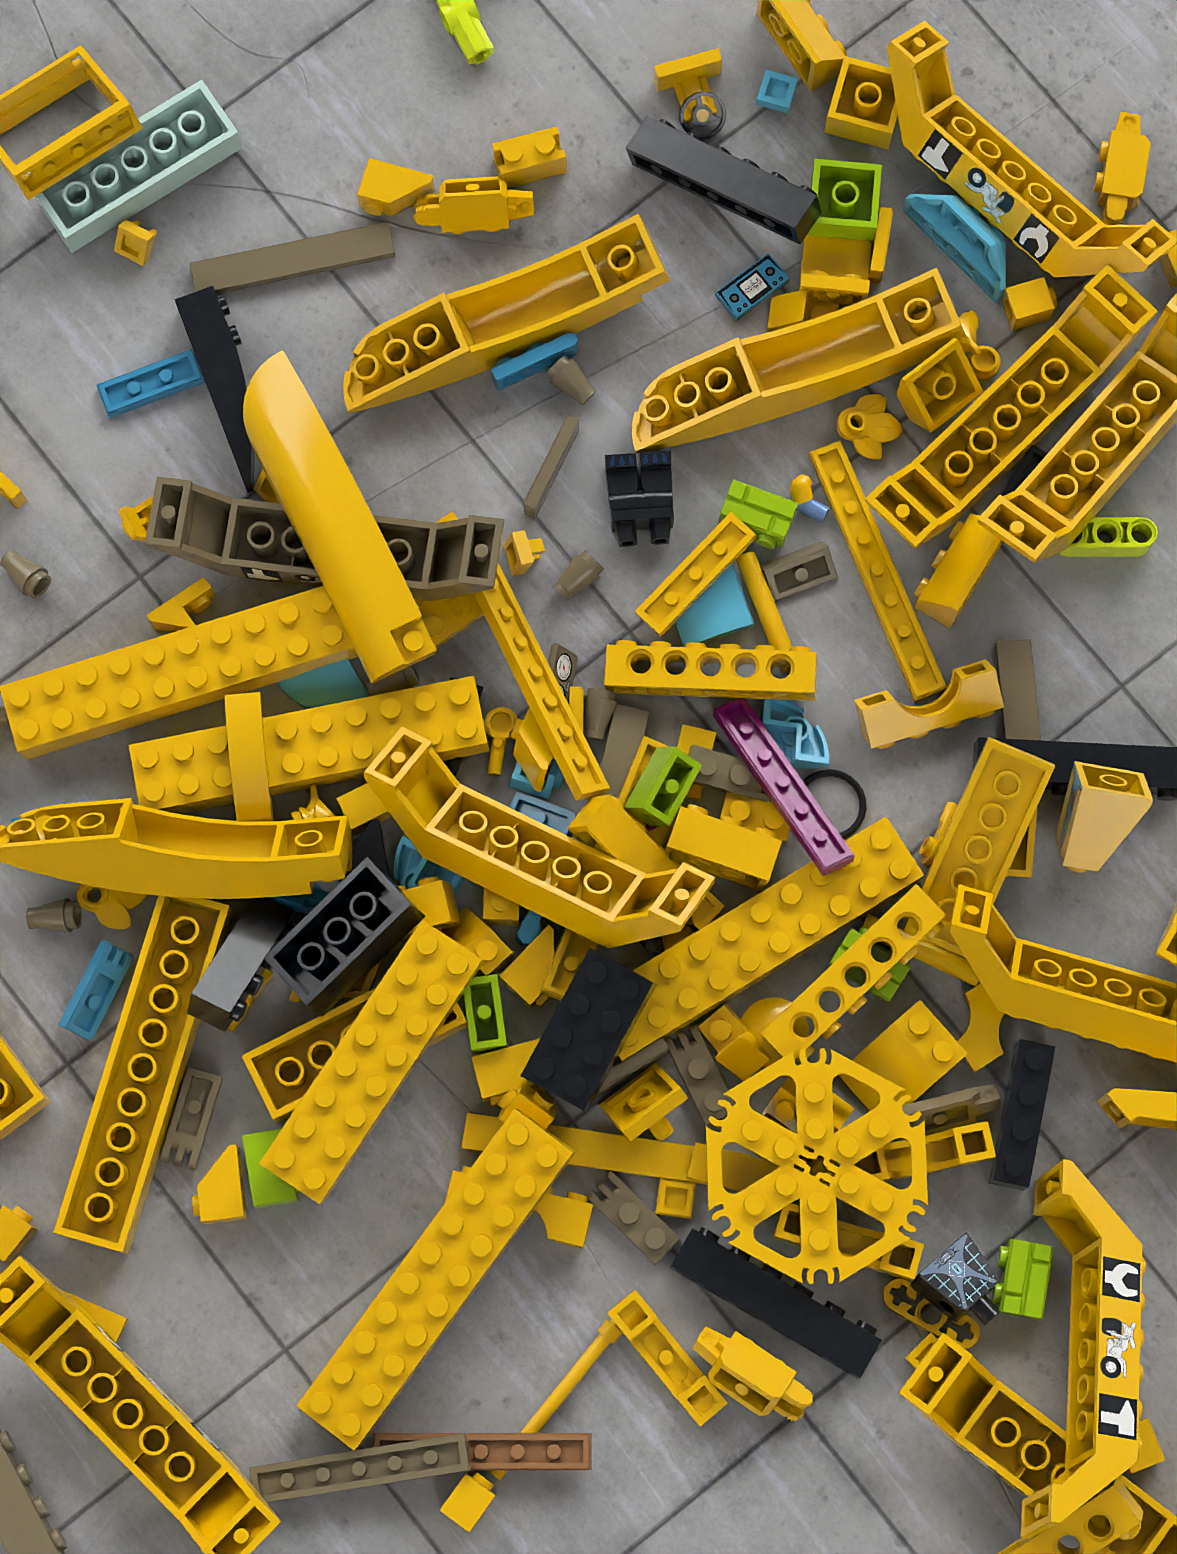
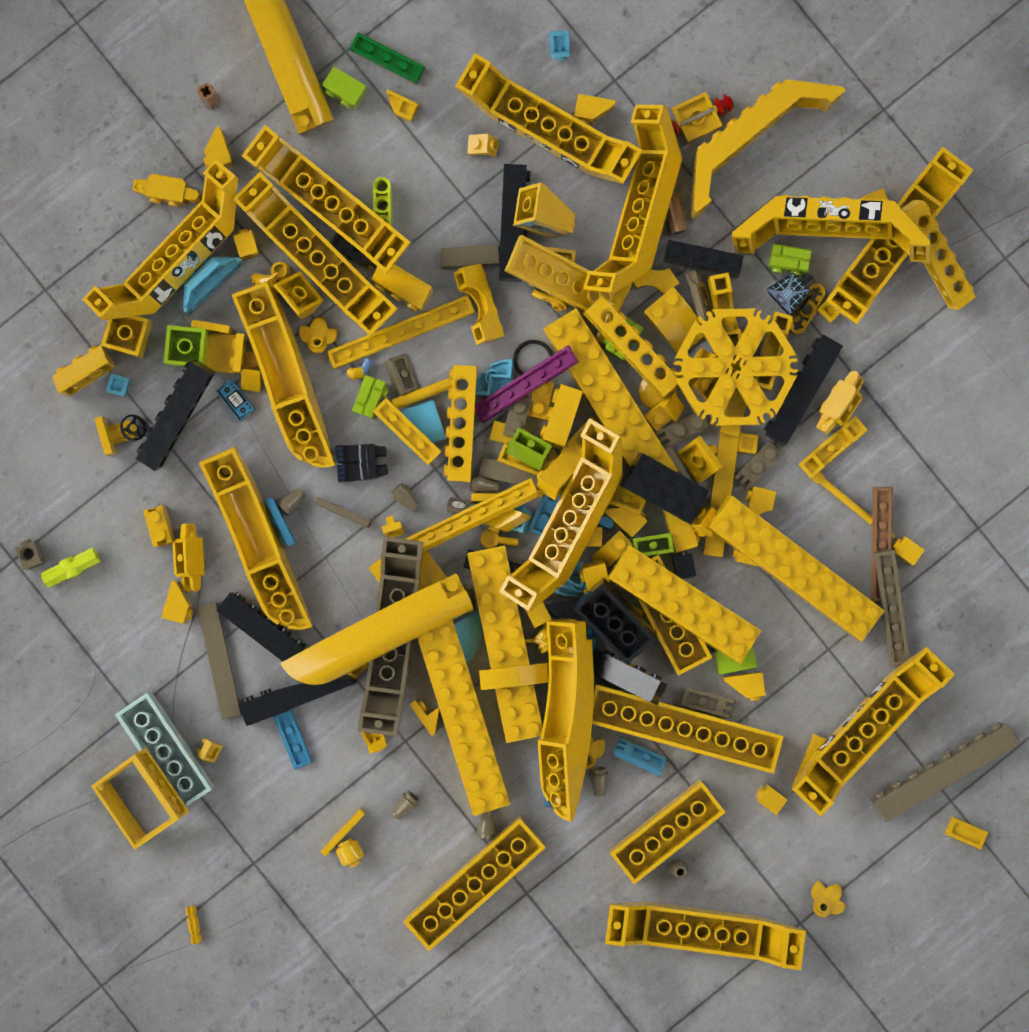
camera: 90 degrees left, 10 degrees up
(354, 314) = (259, 627): none -> black brick
(447, 1074) = (683, 565): none -> black brick
(1103, 1064) = (675, 216): none -> medium nougat axle

